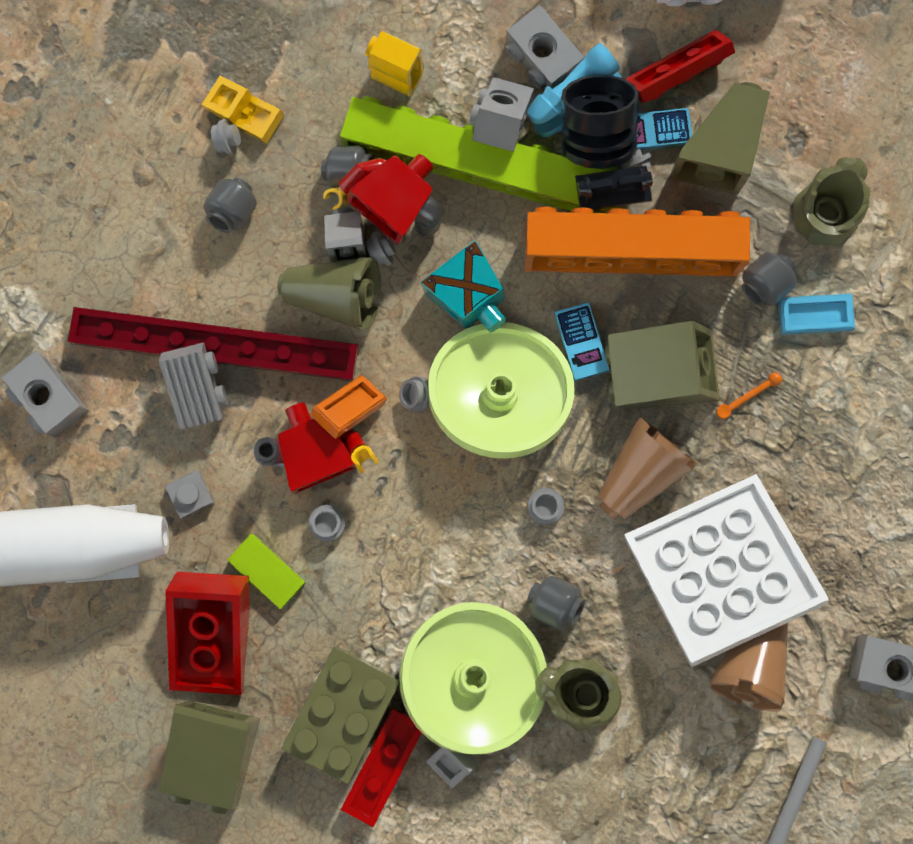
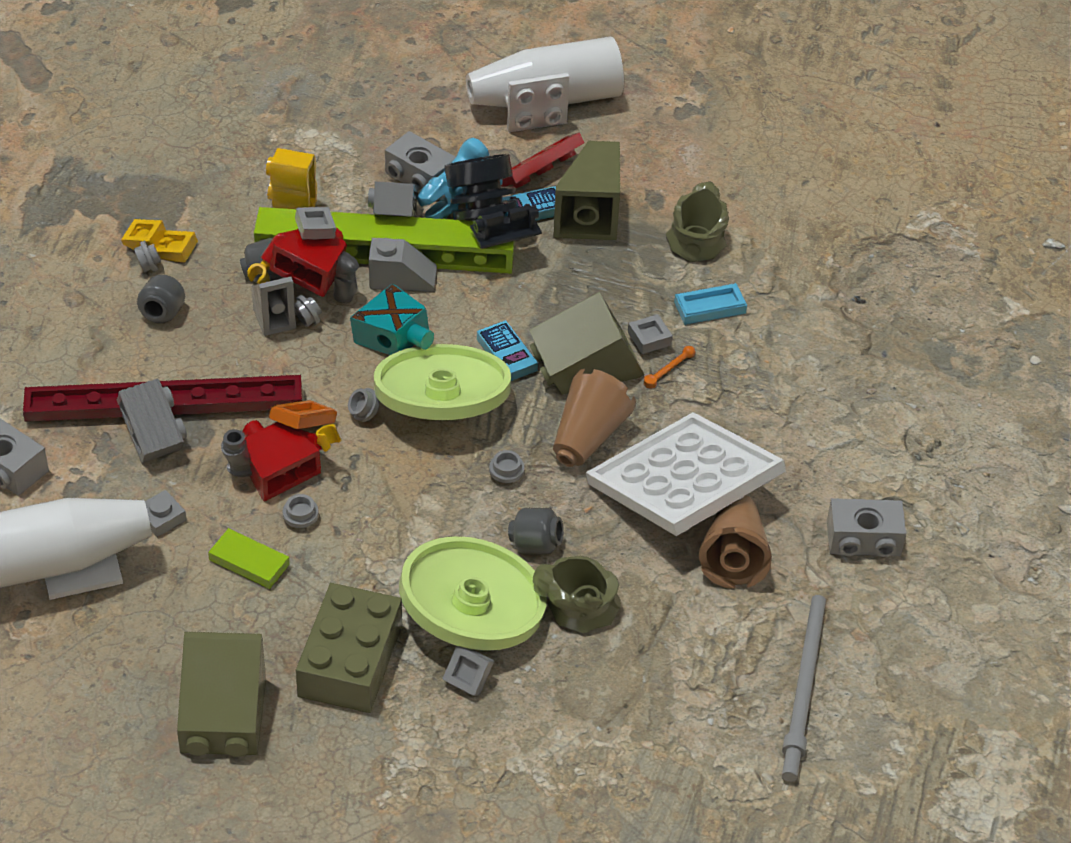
camera: 20 degrees left, 35 degrees down
(207, 632) = (197, 596): red slope -> none
(334, 290) = (270, 337): olive cone -> none
(382, 768) = (400, 688): red plate -> none
(400, 167) = (315, 223): none -> light grey plate
(492, 204) = (400, 264): none -> light grey slope
(636, 242) = (534, 266): orange brick -> none
(738, 351) = (650, 334): none -> light grey plate
(769, 279) = (660, 279): dark grey head -> none

